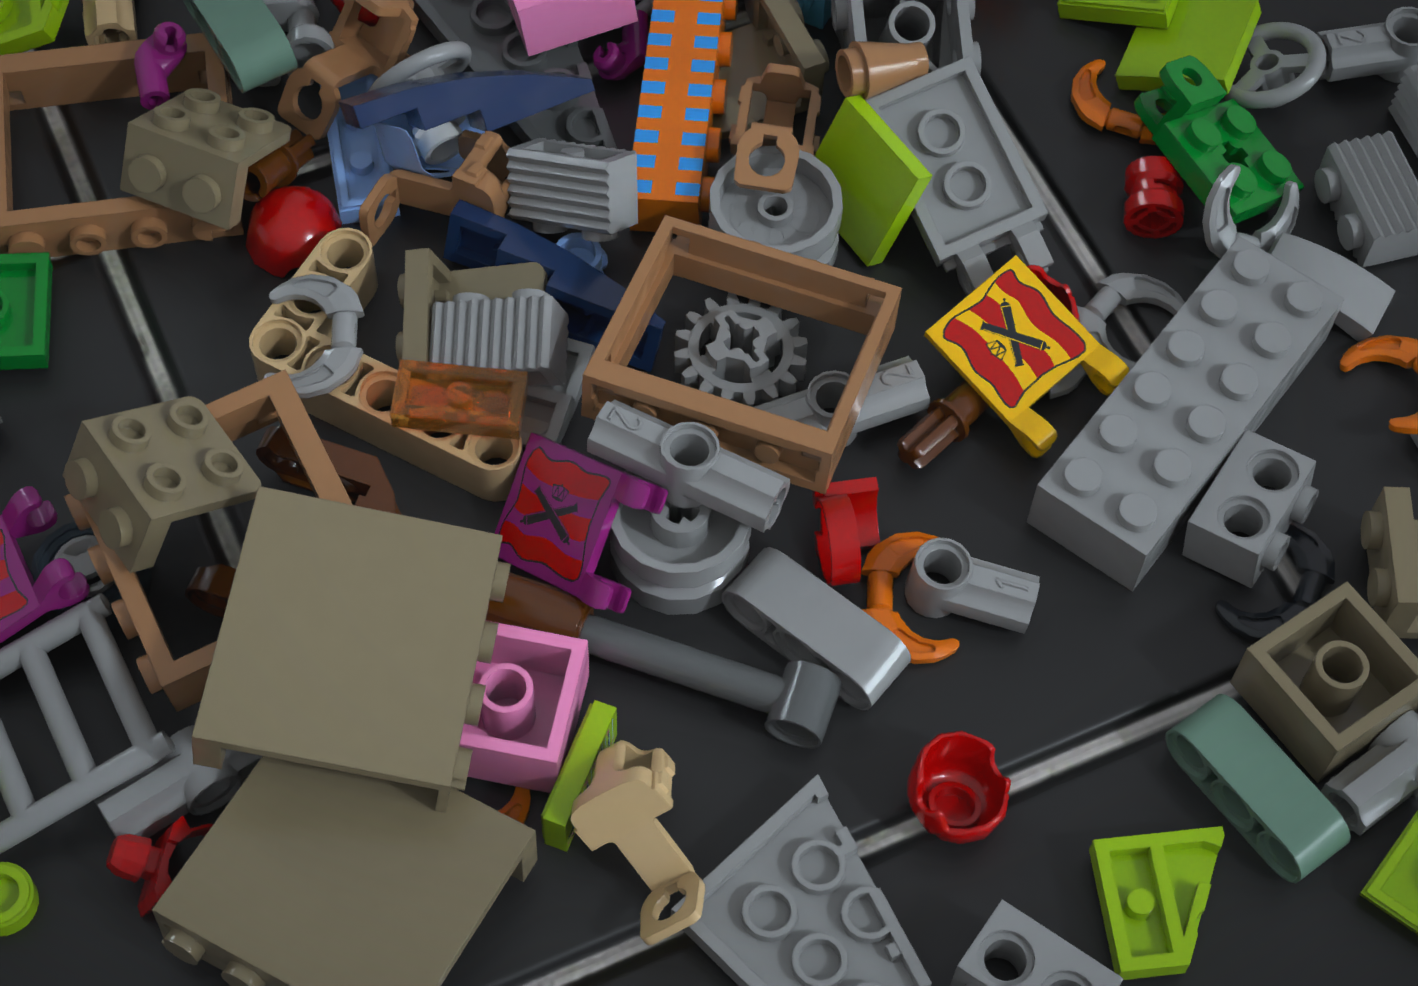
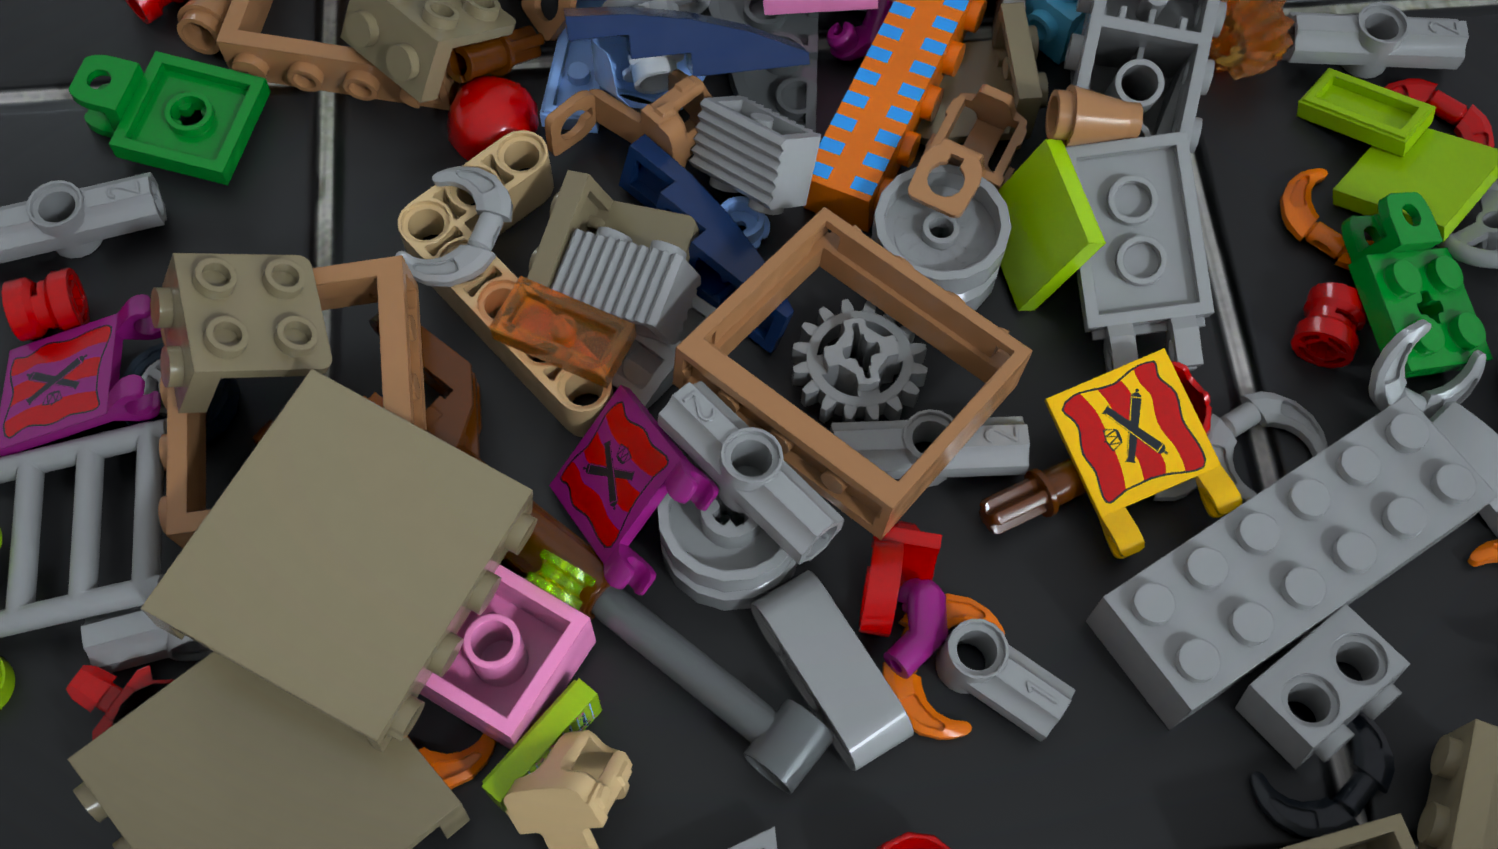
camera: 20 degrees right, 5 degrees up
(548, 612) = (561, 579): none -> clear neon green bush
(890, 562) = (927, 626): none -> magenta arm

